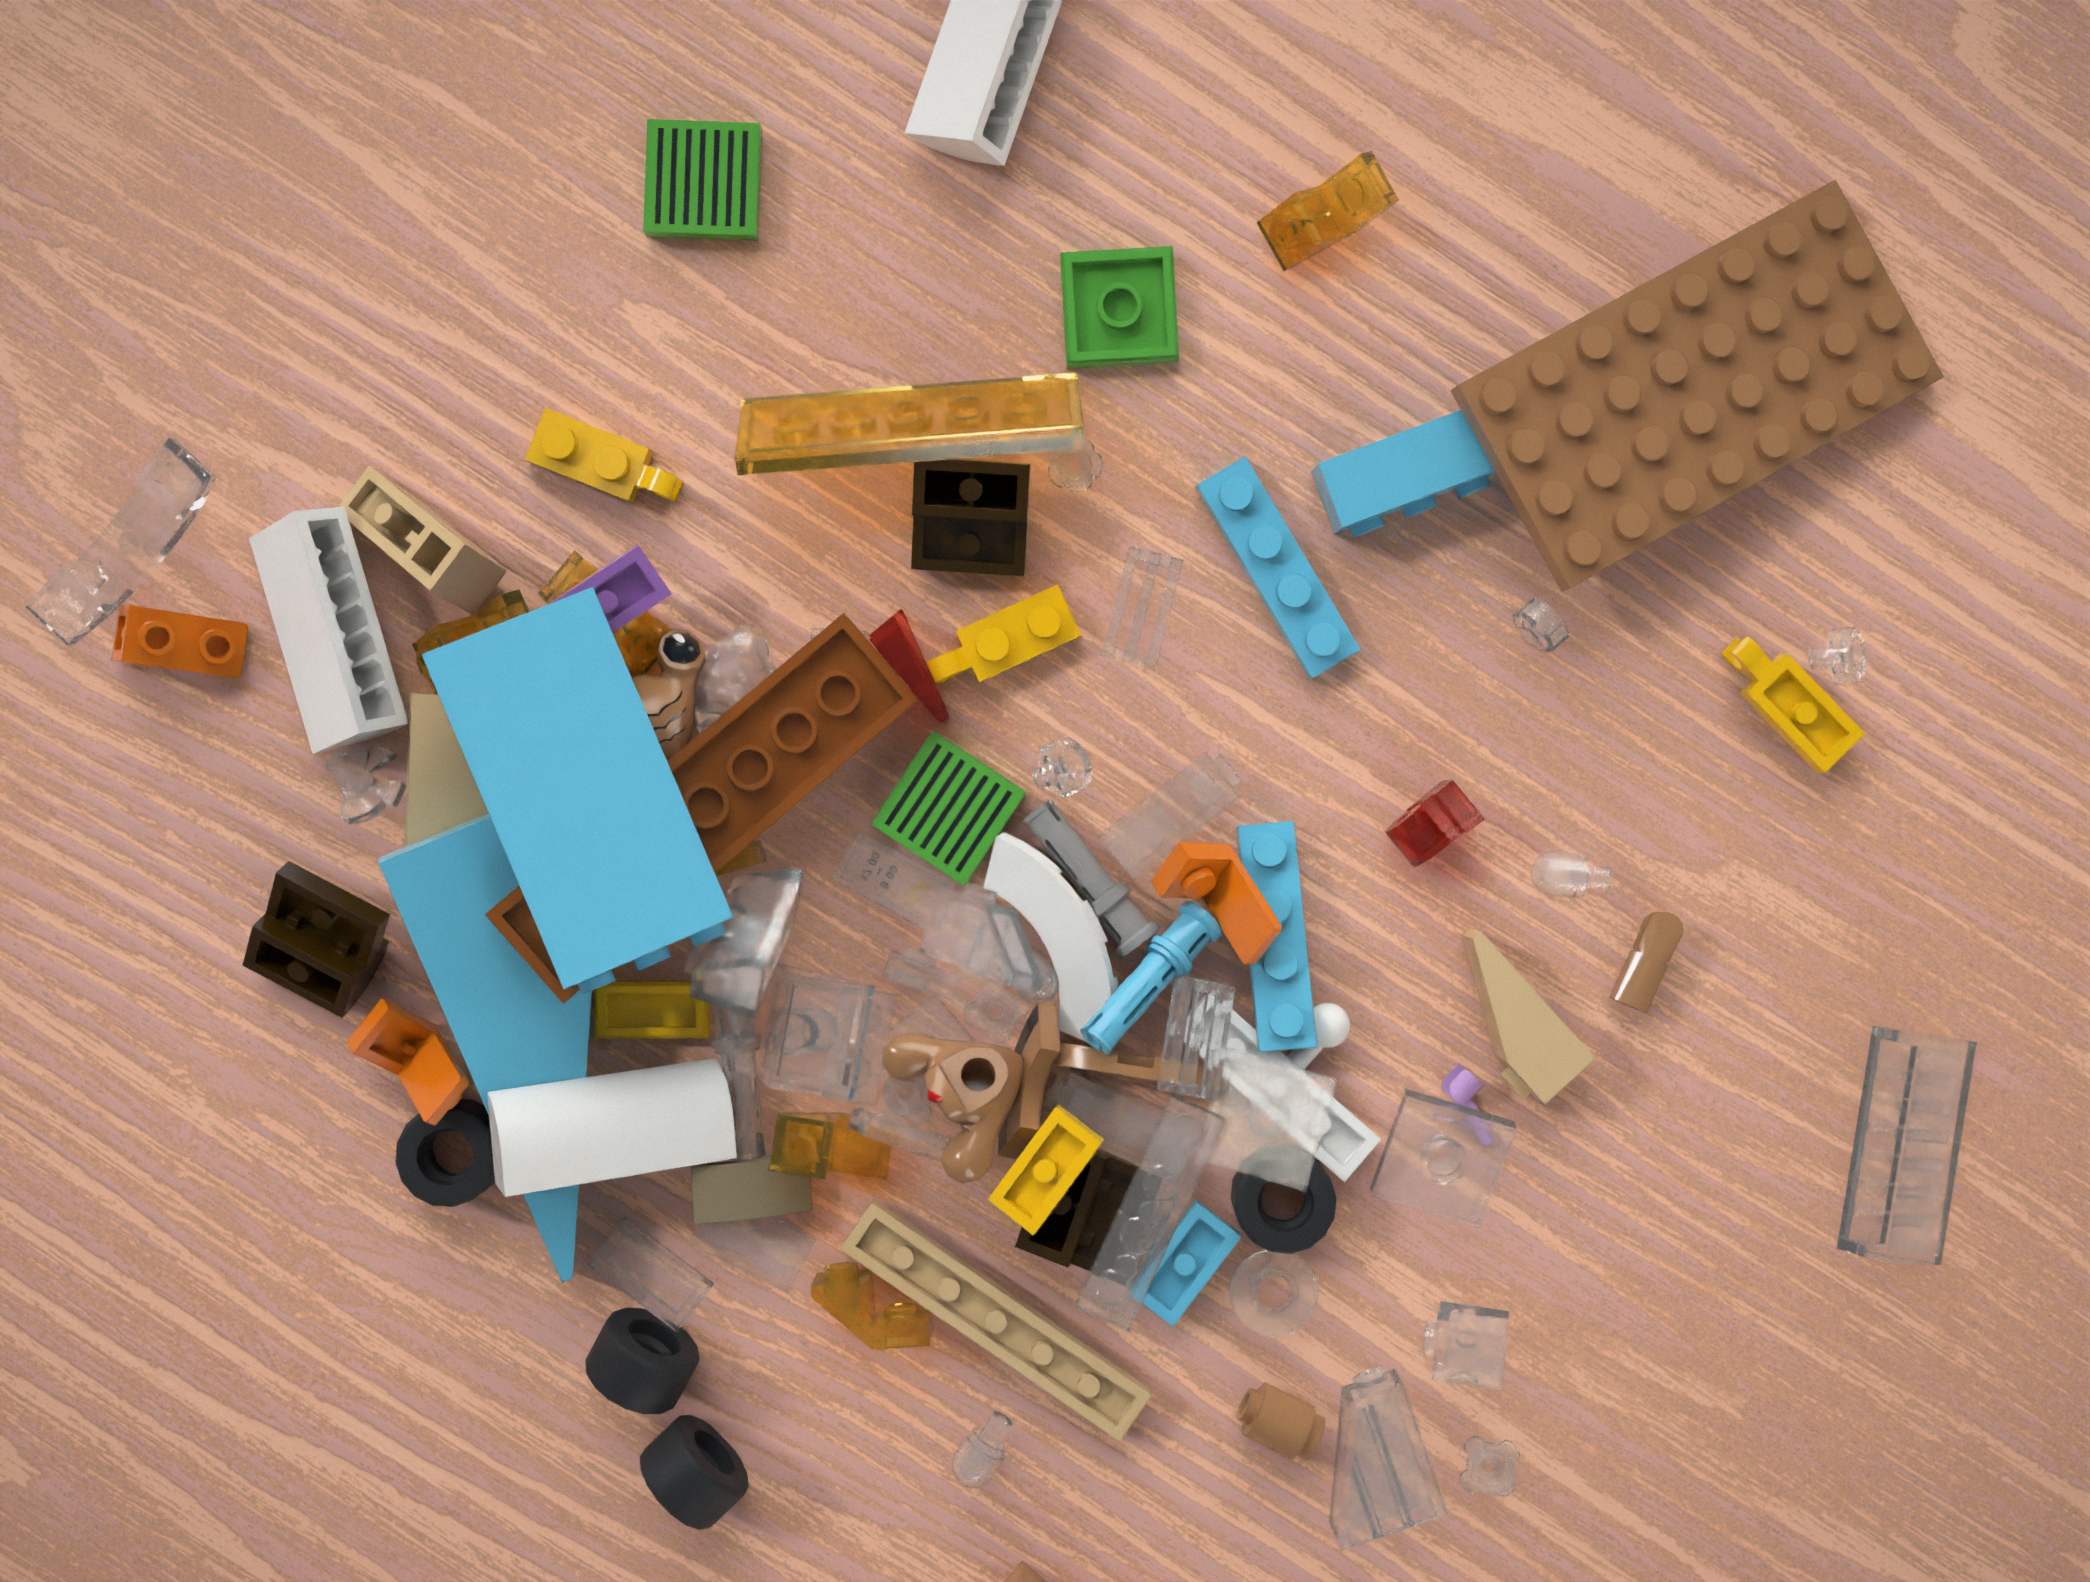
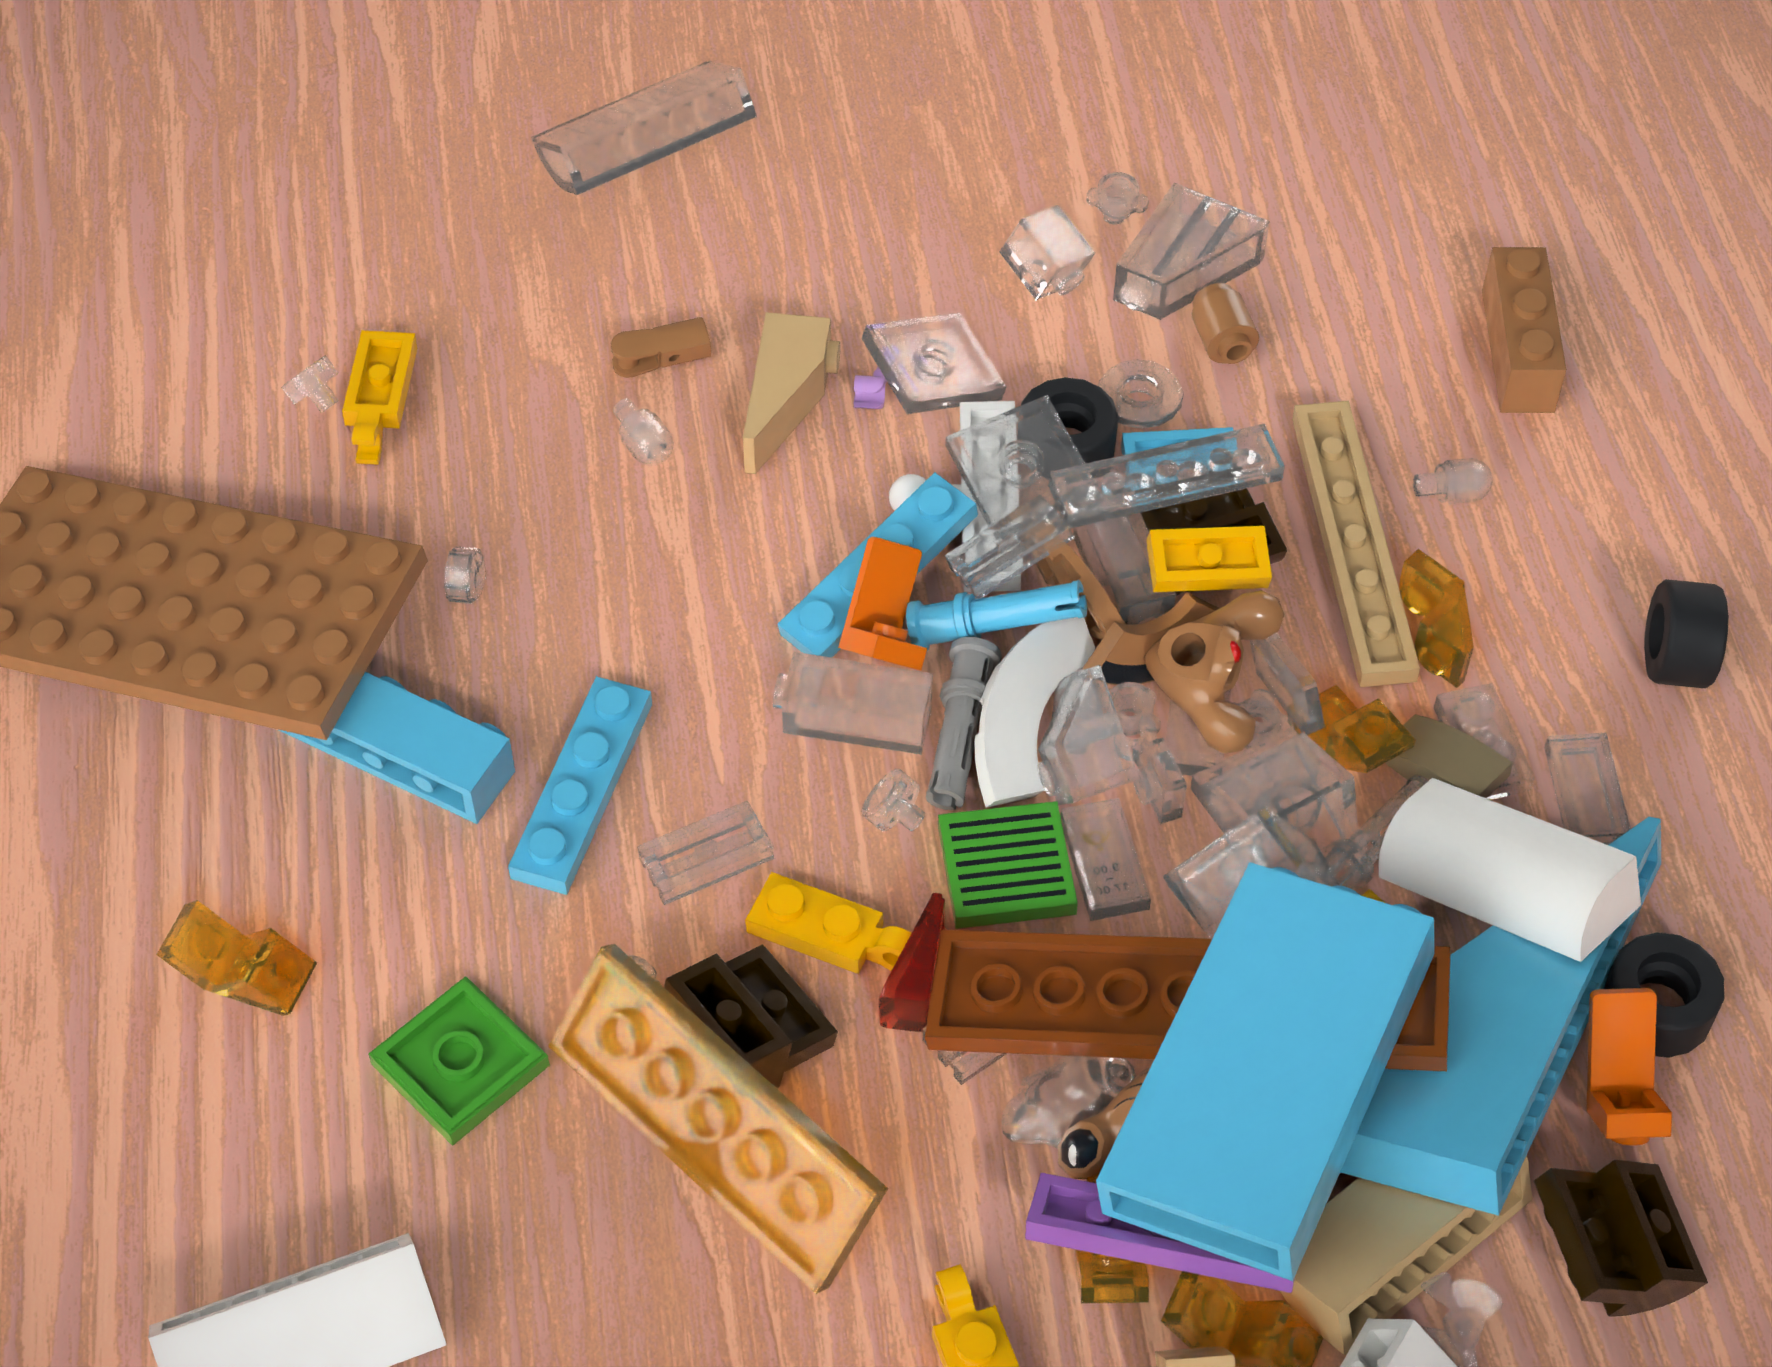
camera: 130 degrees left, 35 degrees down
(641, 1361) = (1652, 726): black tyre -> none
(1433, 822) = (687, 536): clear red leg -> none

